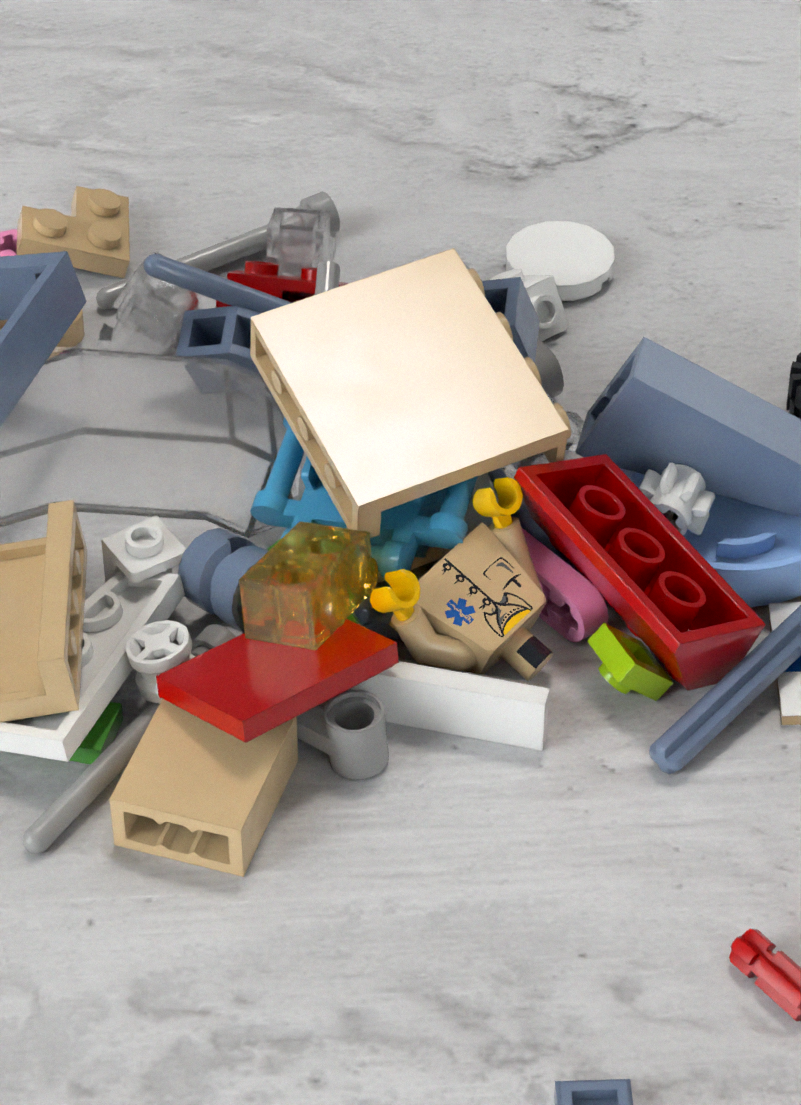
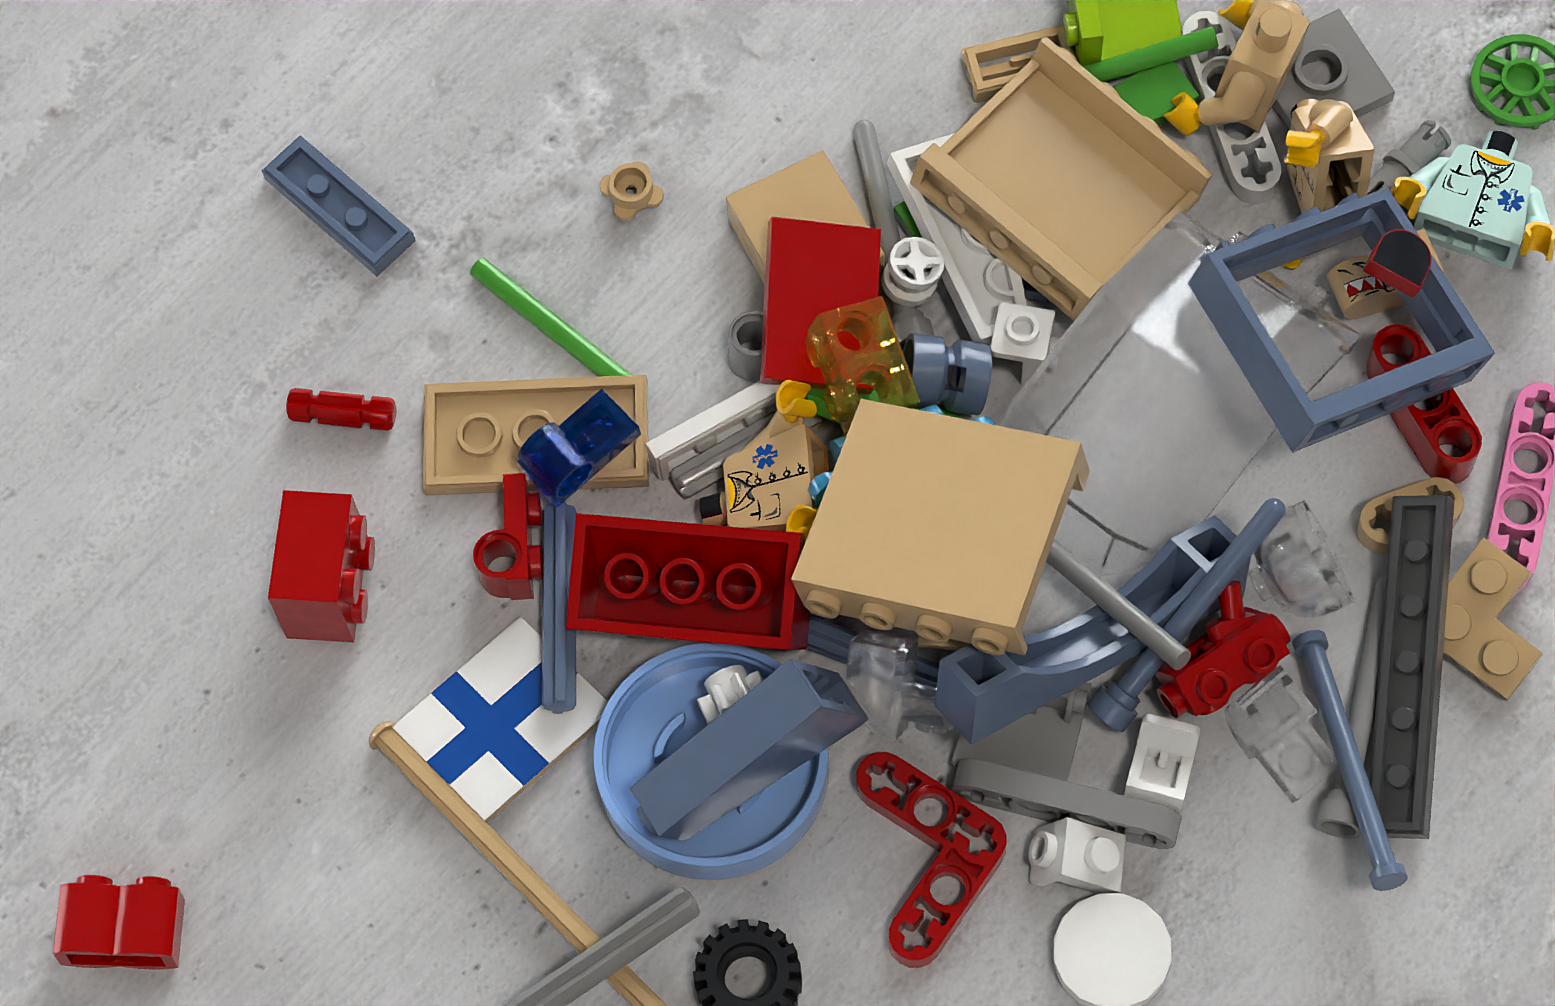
camera: 140 degrees right, 25 degrees up
(176, 228) = (1411, 663): none -> dark grey tile
(306, 938) = (628, 176): none -> tan plate
(342, 143) = (1386, 872): none -> sand blue bar
(506, 906) = (545, 320): none -> bright green bar
(603, 357) = (953, 856): none -> red beam
(620, 749) = (570, 454): none -> clear blue plate
(625, 830) = (480, 427): none -> tan tile
(747, 745) = (521, 513): none -> red plate

